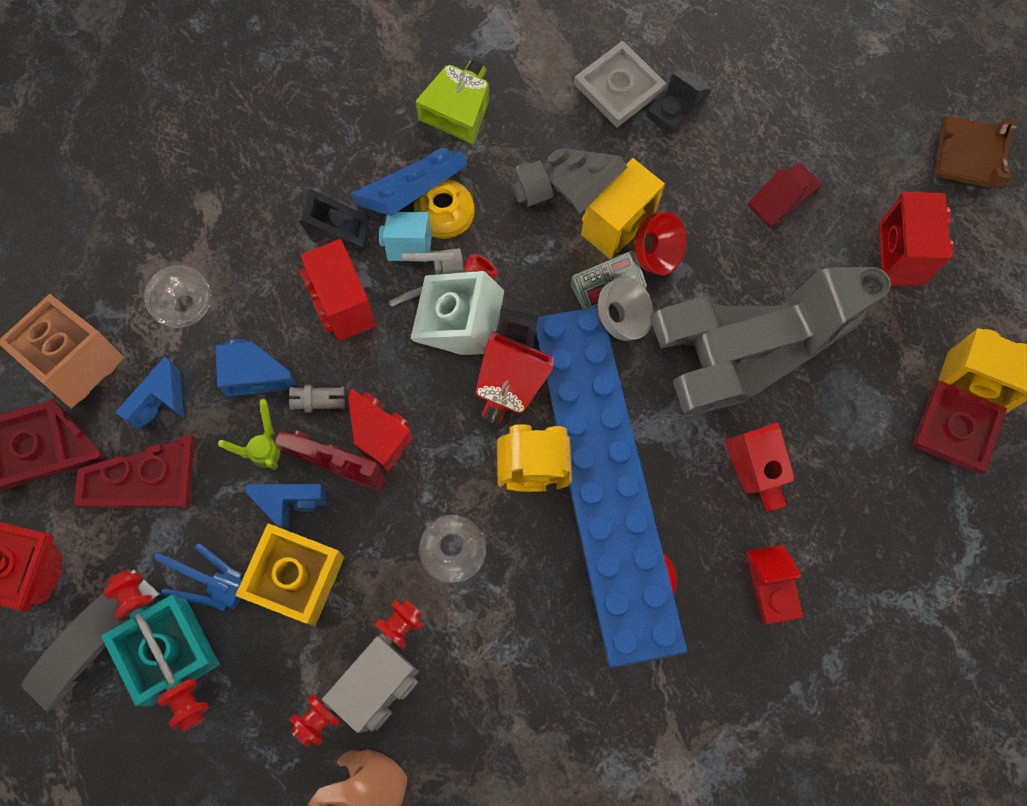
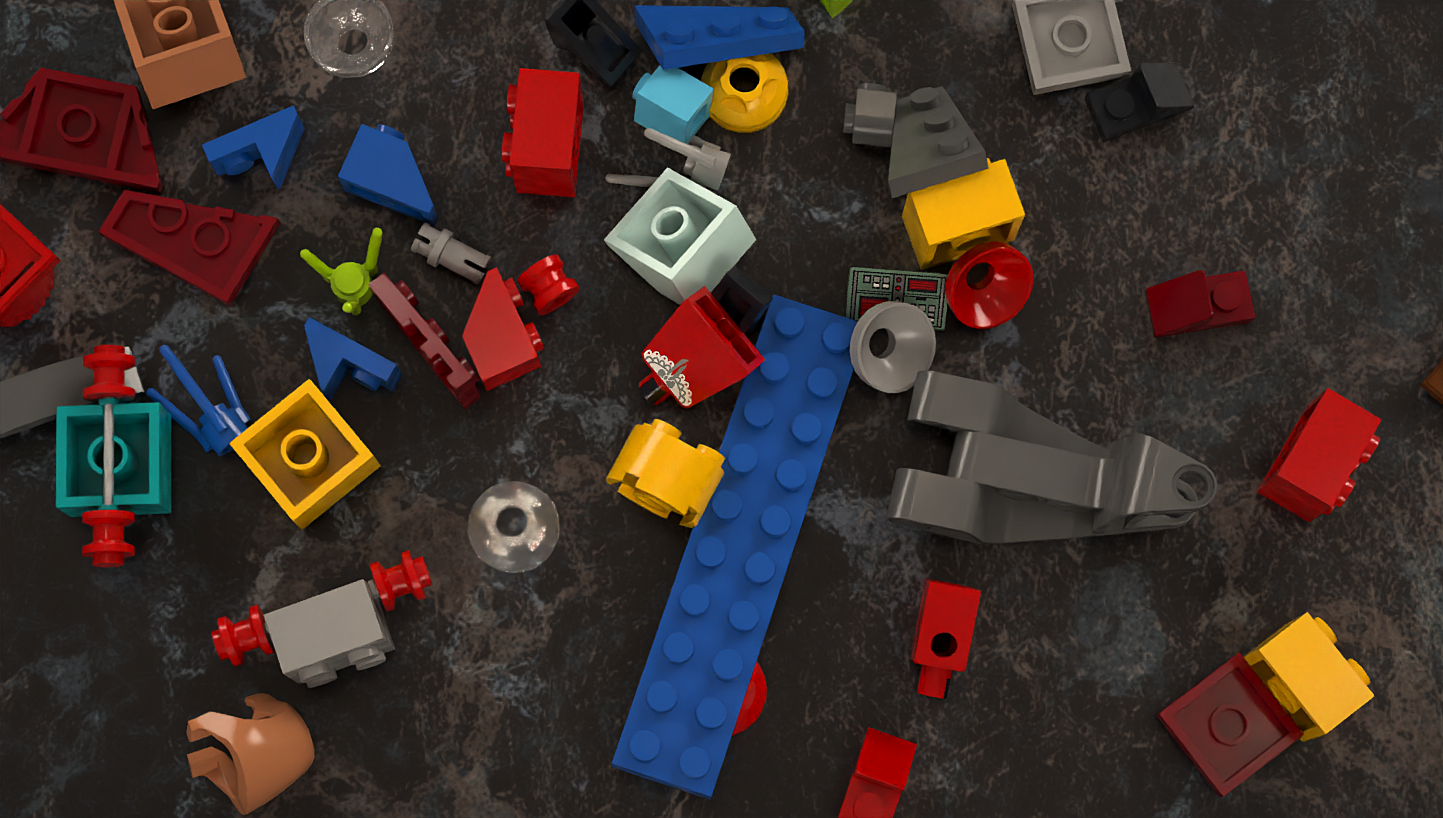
camera: 30 degrees right, 5 degrees up
(390, 384) = (548, 284): none -> red wheel
(479, 263) = (743, 192): red tile -> none

